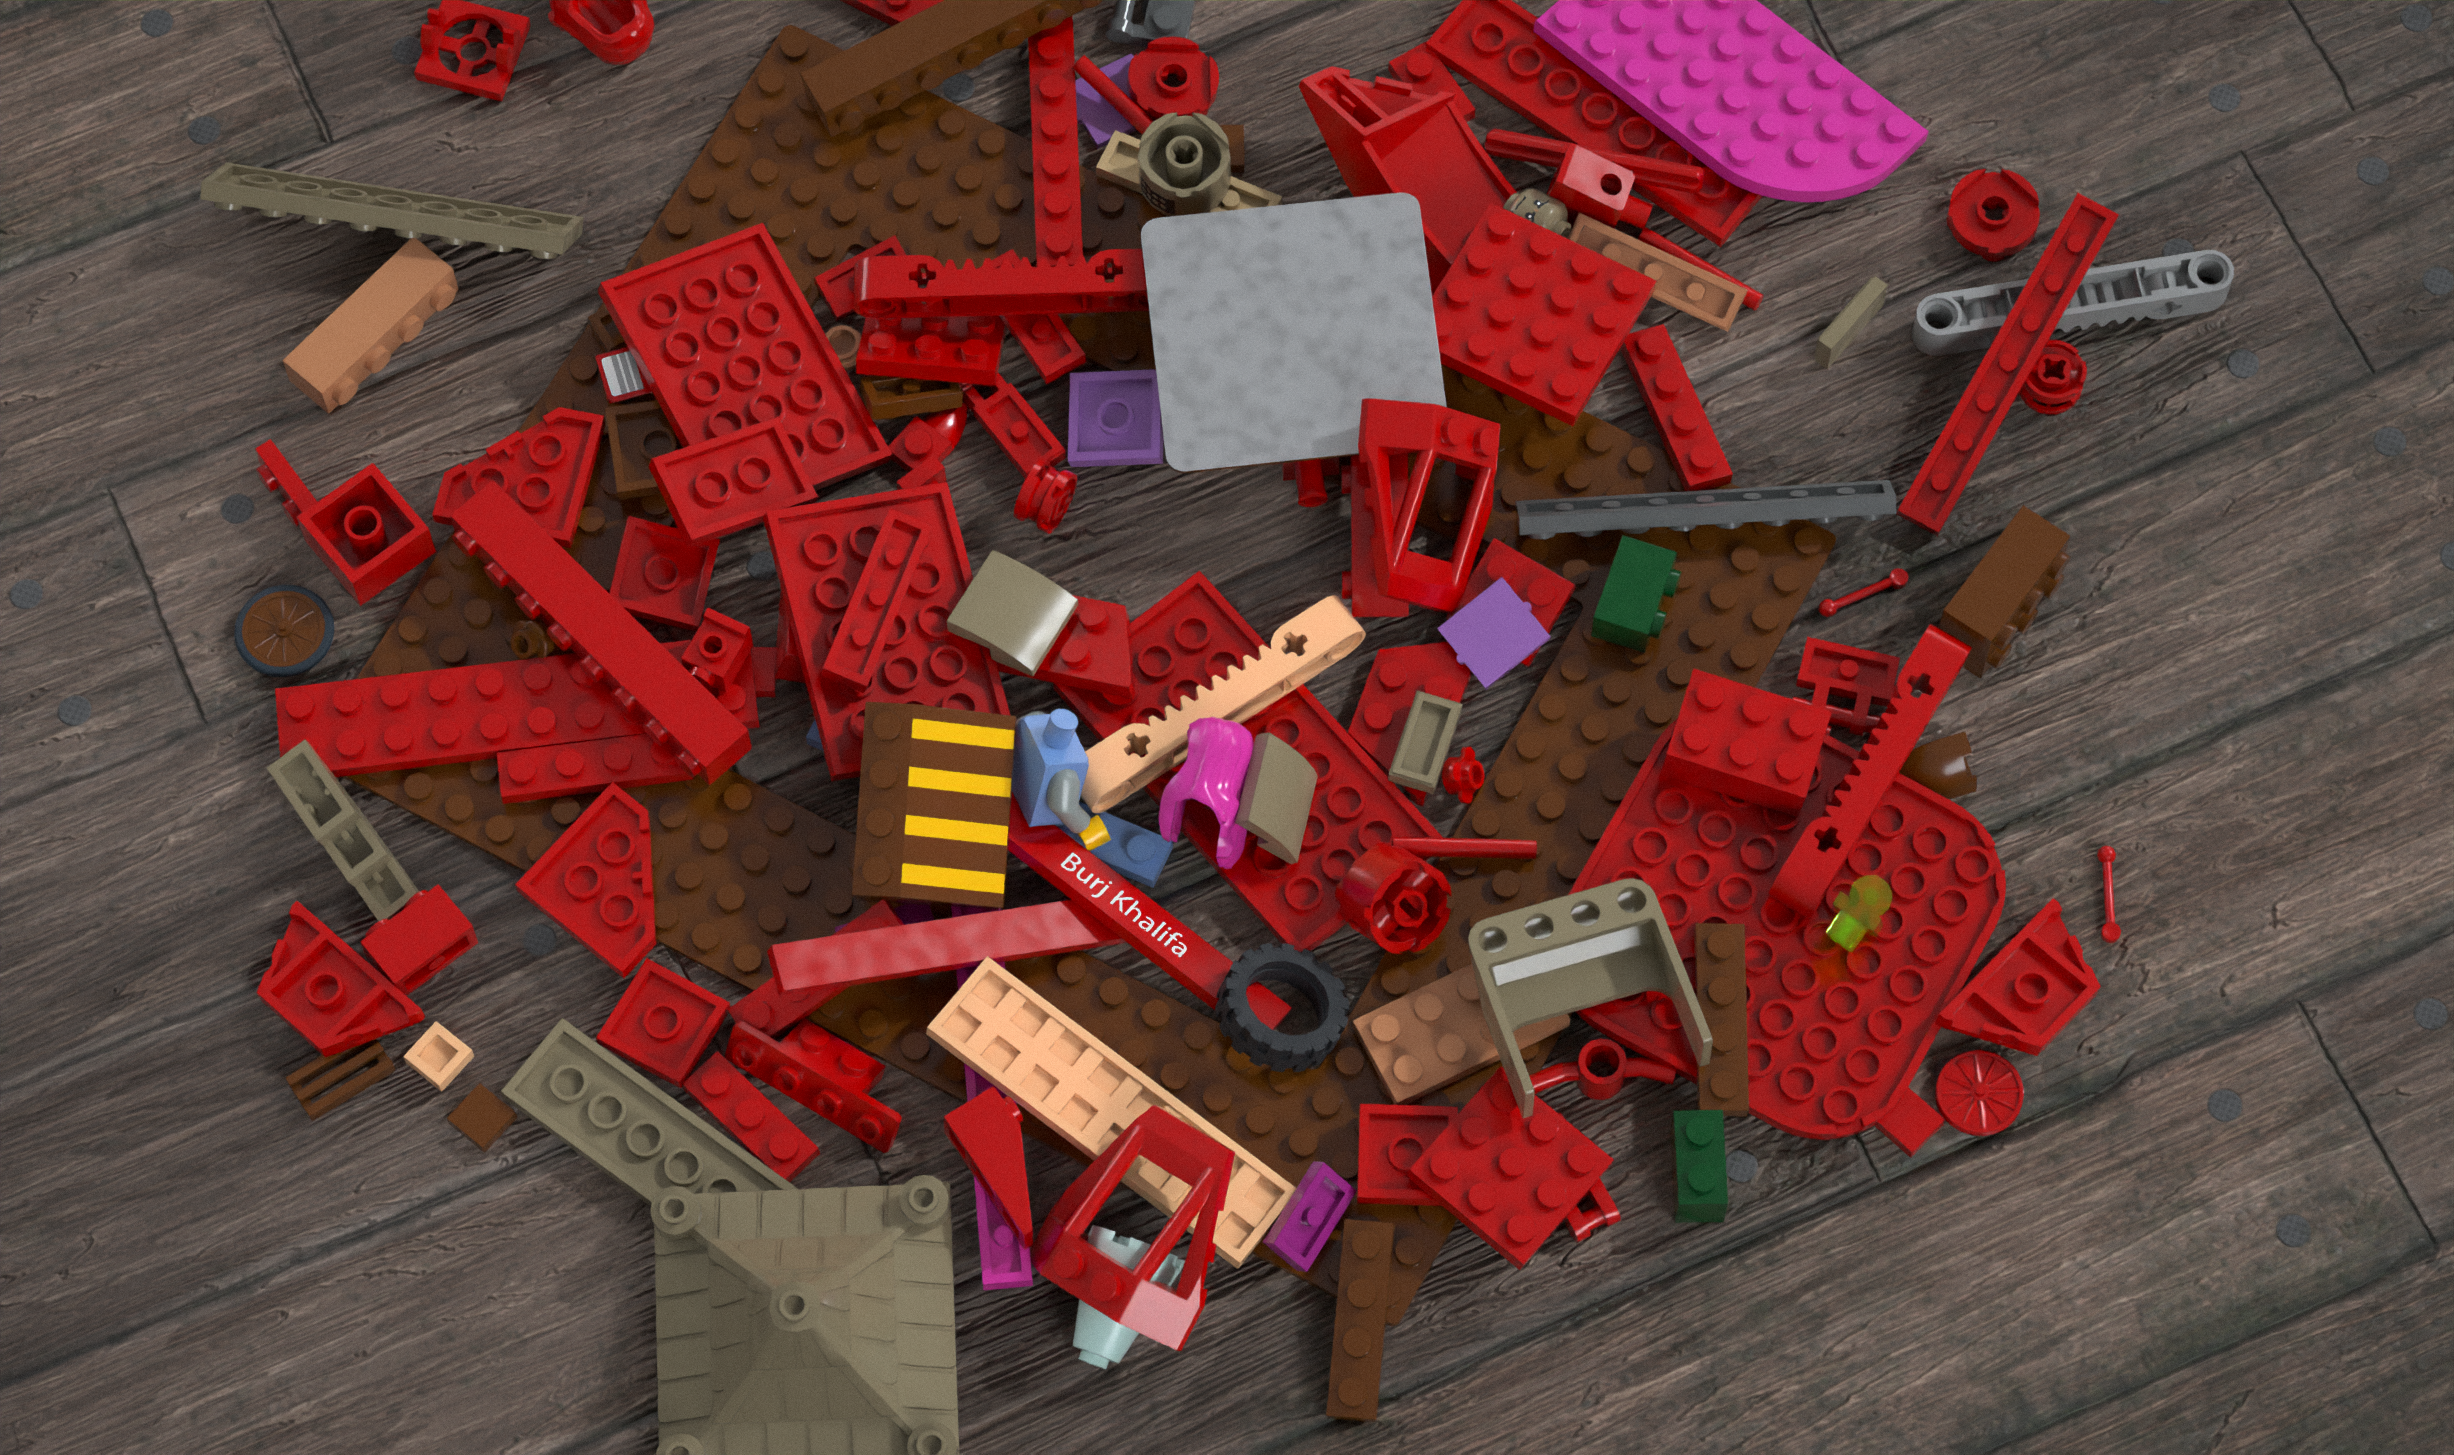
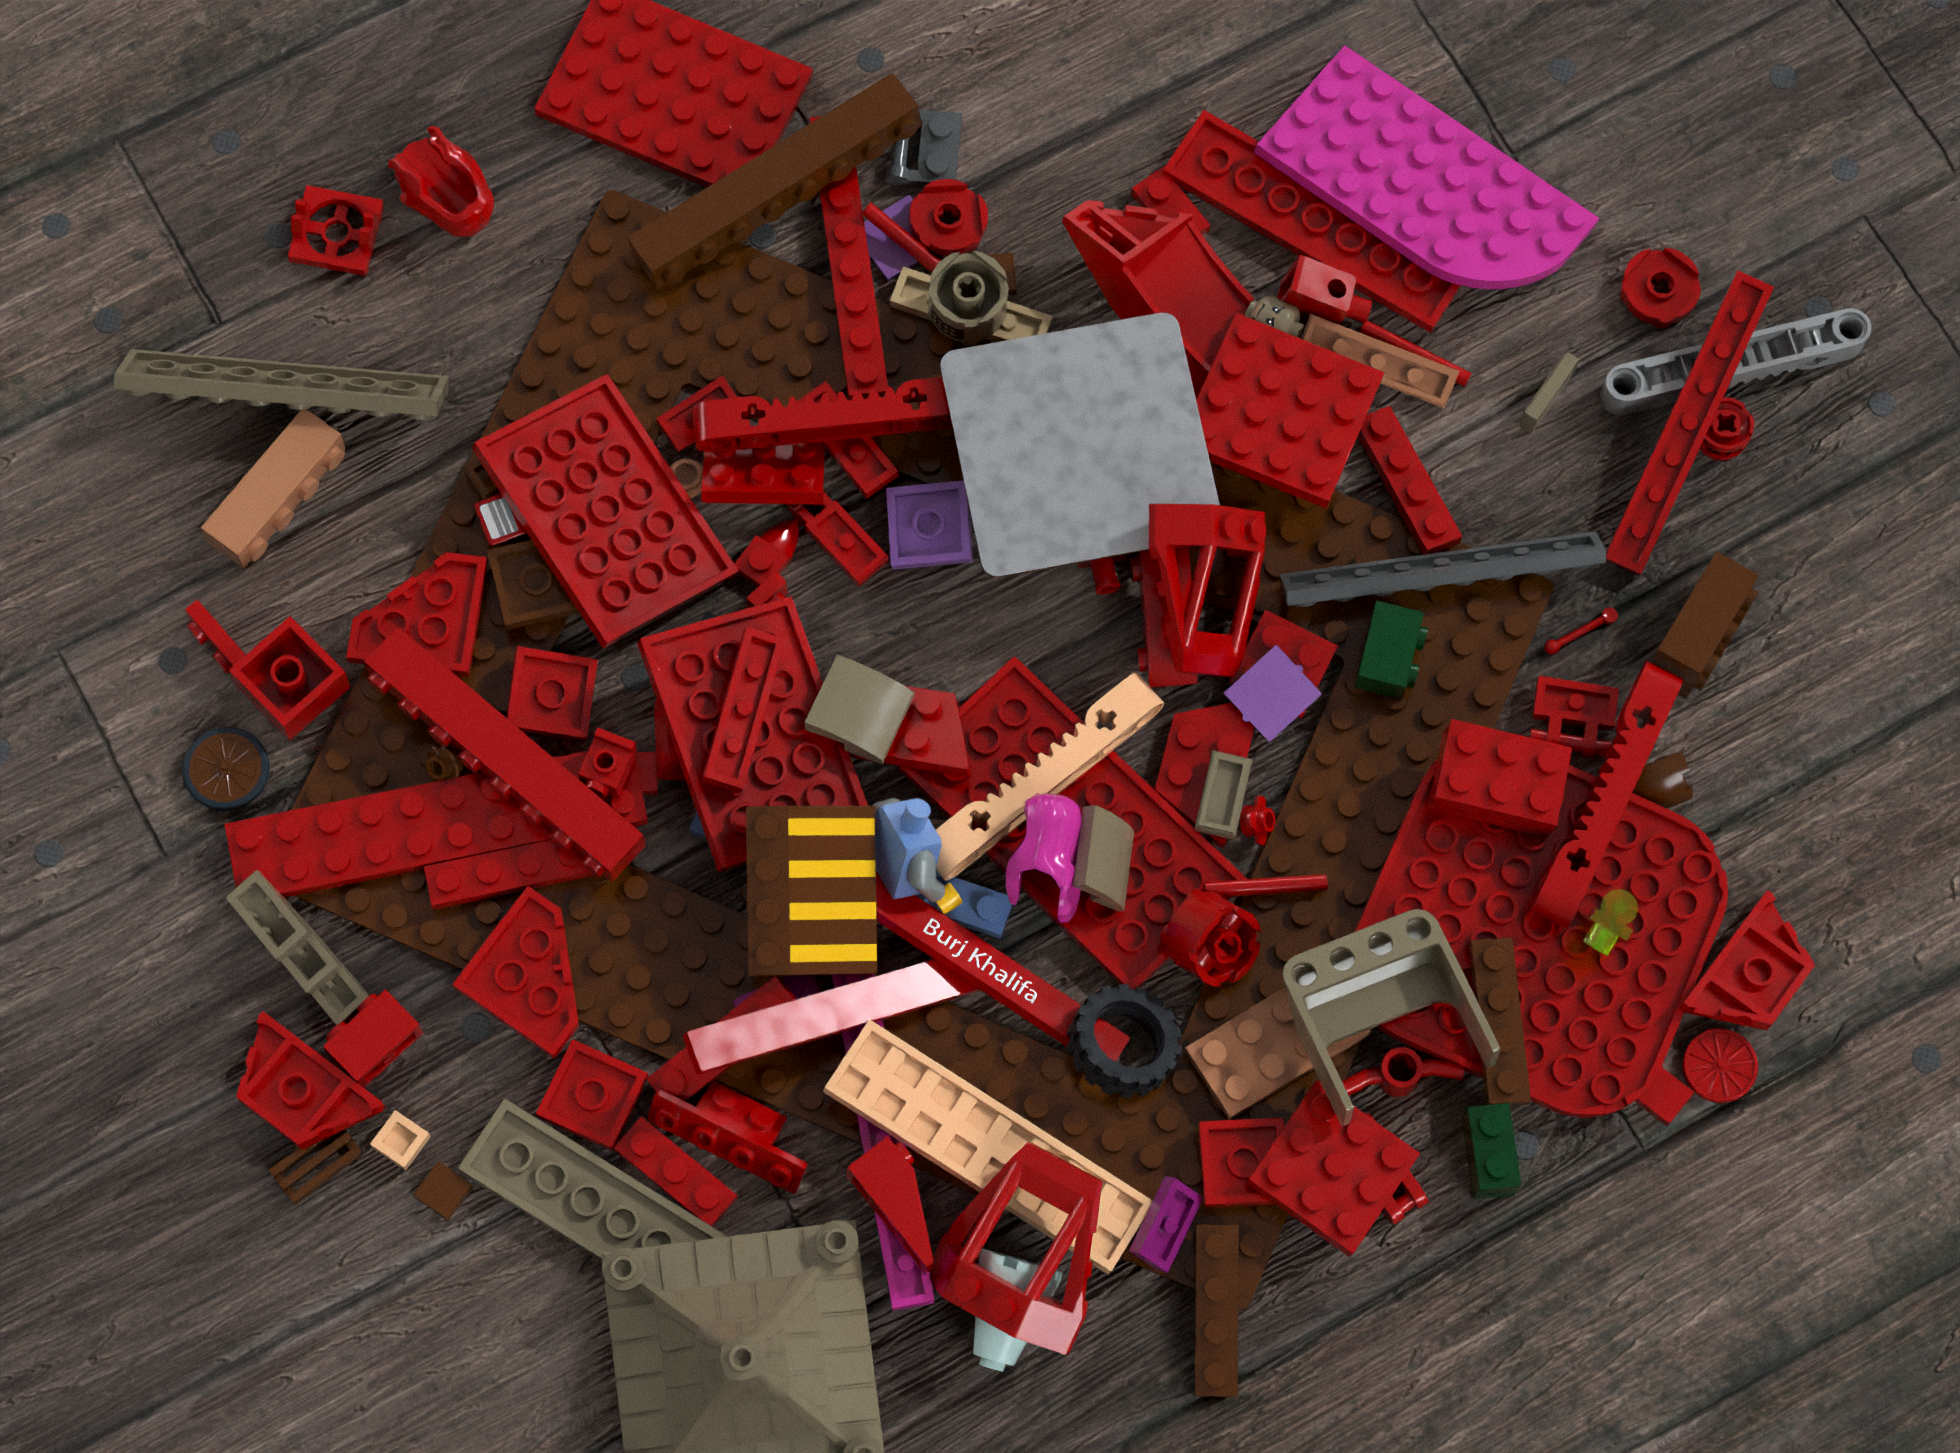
camera: 10 degrees left, 5 degrees up
(731, 481) = (607, 612): red plate -> none
(897, 396) = (740, 520): reddish brown plate -> none
(1045, 496) = (875, 599): red wheel -> none
(1550, 152) = (1282, 259): red axle -> none
(2111, 931) = (1817, 913): red hinge -> none

